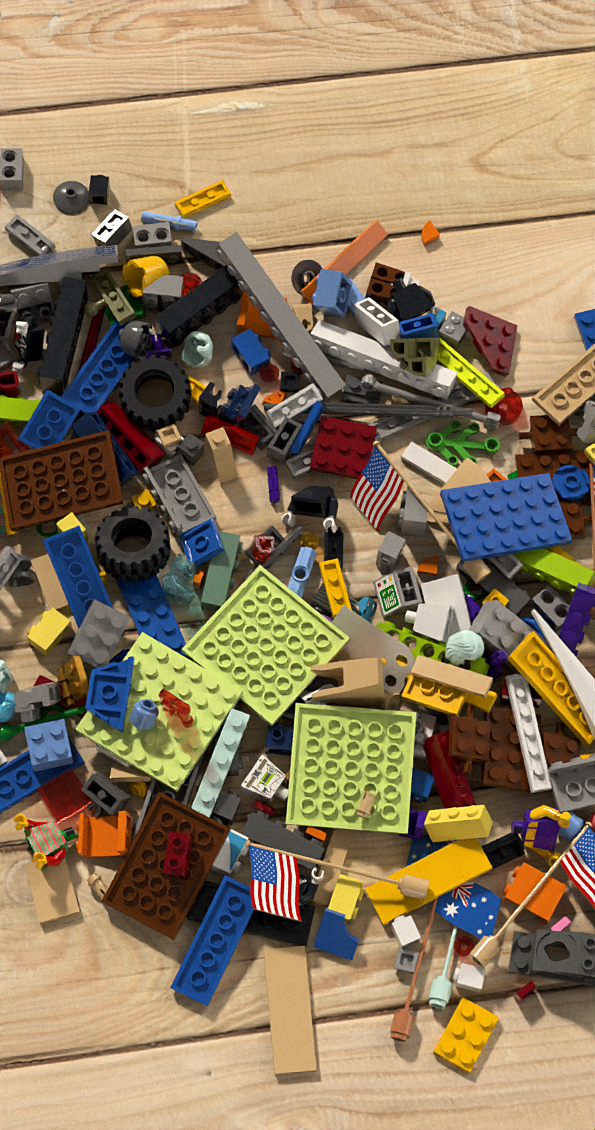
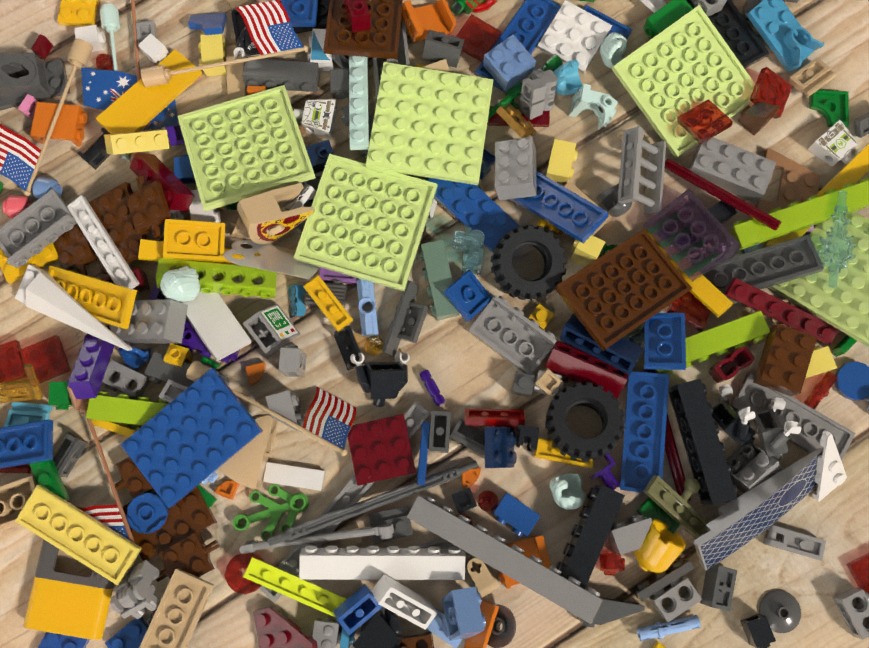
camera: 165 degrees right, 10 degrees up
(110, 692) = (478, 112): blue wing -> none
(135, 338) = (632, 467): dark grey cylinder -> none
(144, 714) = (435, 105): medium blue head -> none
(174, 706) = (418, 112): clear red plate -> none
(198, 579) = (456, 266): orange tile -> none
(220, 455) = (491, 385): tan slope -> none
(262, 546) = (410, 312): clear red plate -> none
(264, 807) = (308, 94): dark red piece -> none
(294, 405) = (446, 472): white tile -> none
(366, 805) = (219, 117): tan pin -> none
(416, 354) = (345, 576): olive brick -> none
(419, 736) = (192, 190): dark grey axle -> none
(431, 620) = (226, 306): white torso -> none
(452, 676) = (181, 251): tan tile -> none
(496, 659) = (150, 292): dark purple axle -> none
(541, 829) = (64, 169): torso -> none

